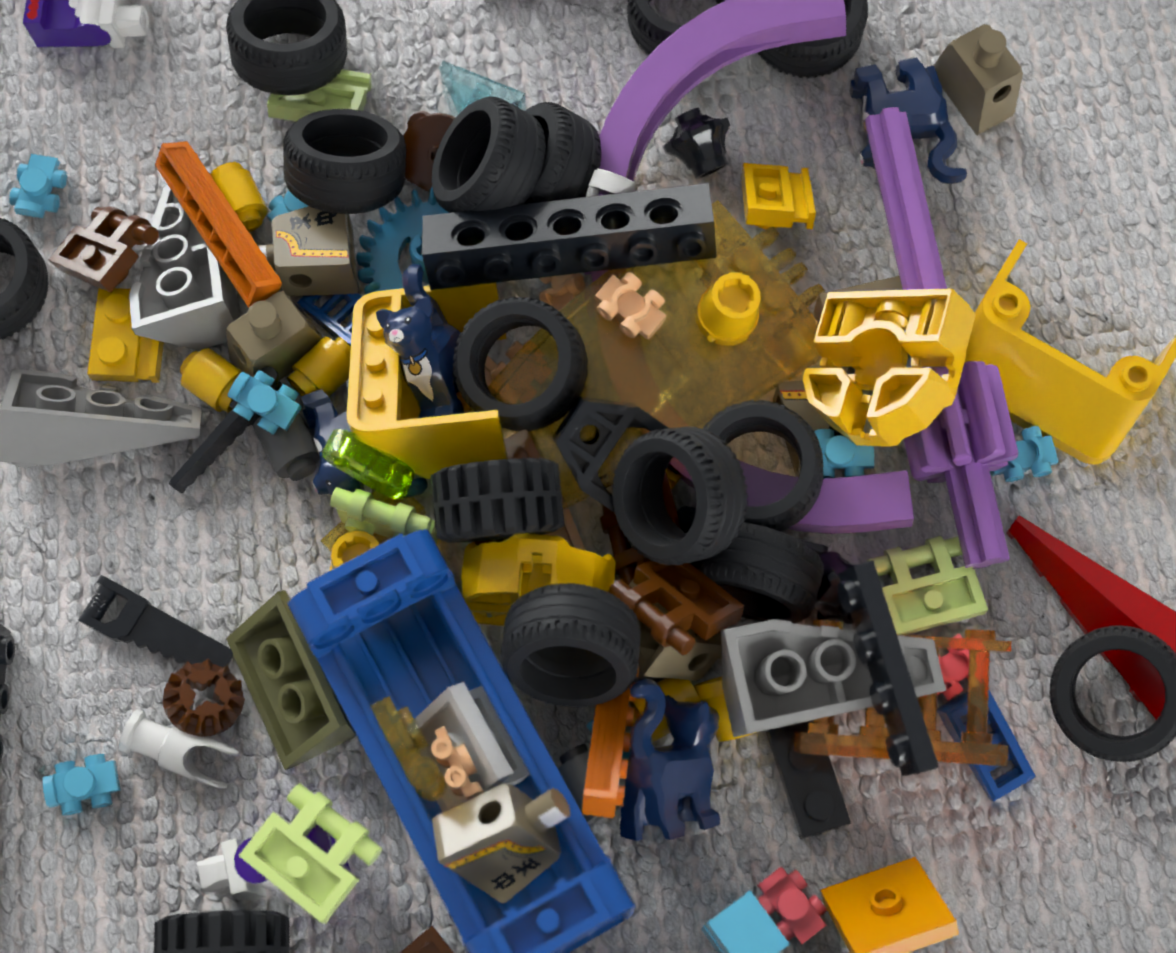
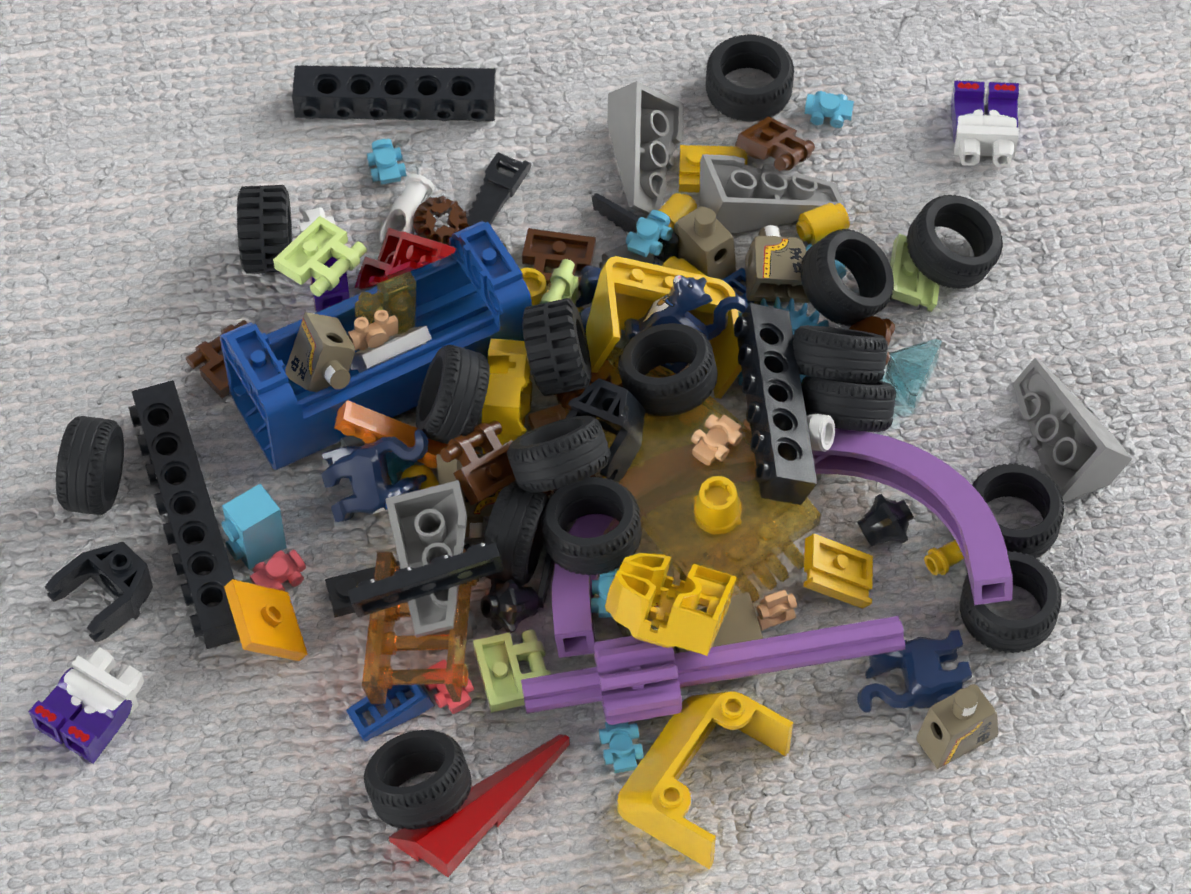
camera: 90 degrees right, 15 degrees down
(217, 222) = (791, 202): orange piece -> none
(262, 535) = (549, 248): none -> reddish brown plate
(304, 725) = (399, 255): none -> red wedge
(368, 464) = (587, 286): clear neon green beam -> none
(743, 88) = (941, 559): none -> yellow pin
(833, 267) = (776, 609): none -> light nougat piece

